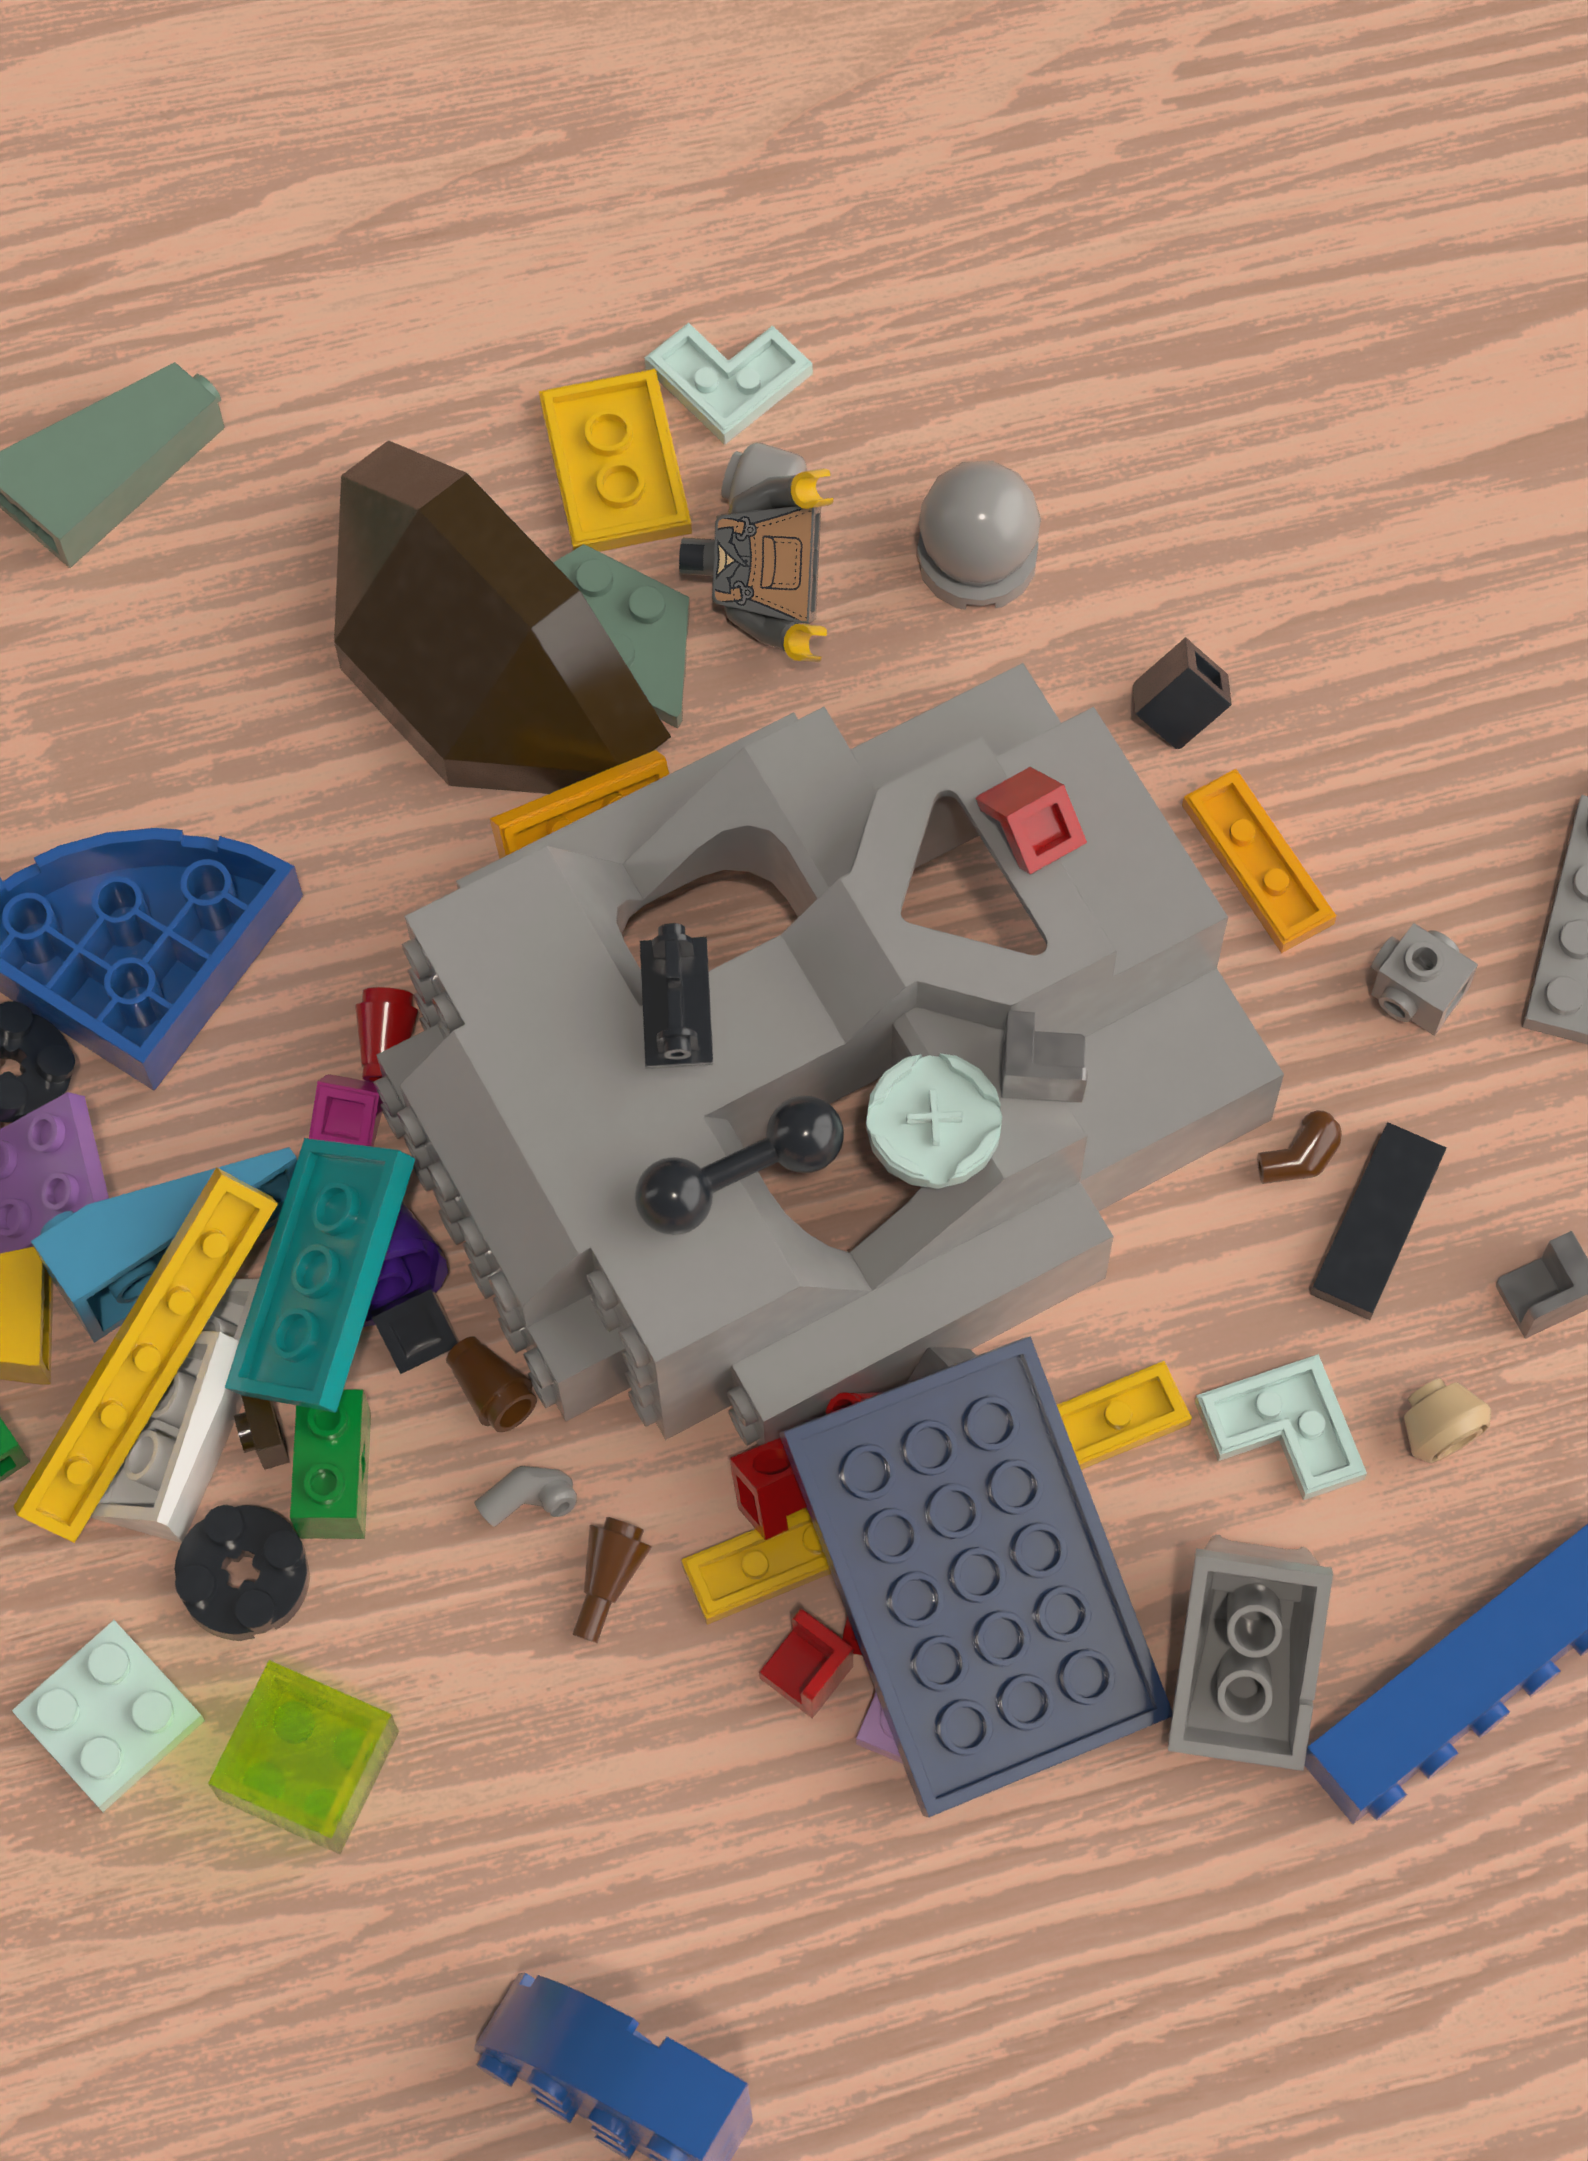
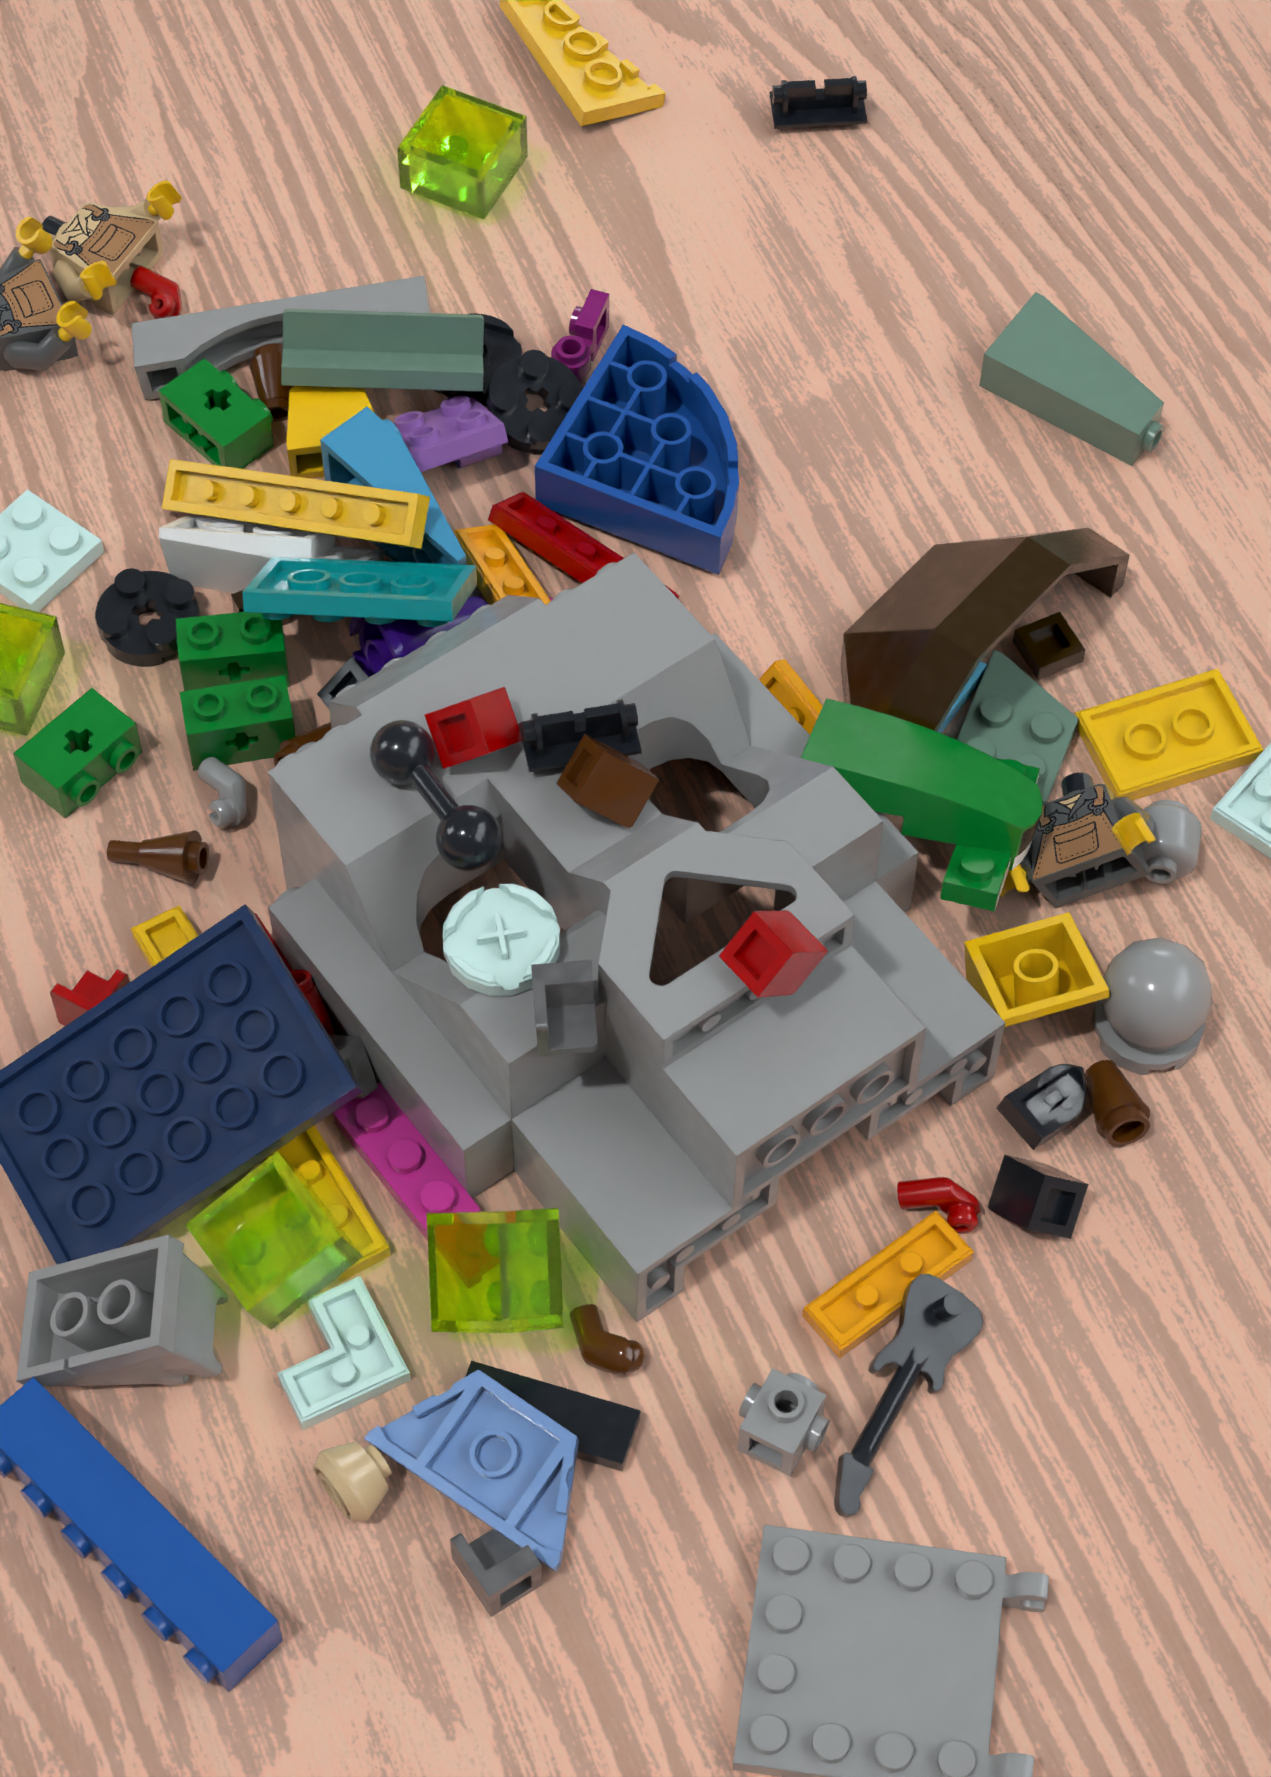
camera: 80 degrees right, 10 degrees down
(253, 1043) = (553, 536): none -> red tile
(324, 1111) = (498, 564): none -> light orange tile
(437, 1464) = (237, 720): none -> green brick
(457, 1699) = (78, 753): none -> green brick
(650, 1113) = (473, 727): none -> red panel
(712, 677) = (940, 790): none -> green slope
(750, 976) = (607, 781): none -> reddish brown panel
(938, 635) = (1034, 969): none -> yellow slope
(1075, 665) = (1046, 1103): none -> black plate
(1078, 599) = (1116, 1104): none -> reddish brown cone
(1108, 1306) = (401, 1158): none -> dark pink plate
(1168, 1470) = (273, 1241): none -> clear neon green piece
(1171, 777) = (944, 1194): none -> red arm
(1245, 1230) = (495, 1271): none -> clear neon green piece
(1320, 821) = (931, 1329): none -> piece
(1437, 1276) = (491, 1459): none -> medium blue wing

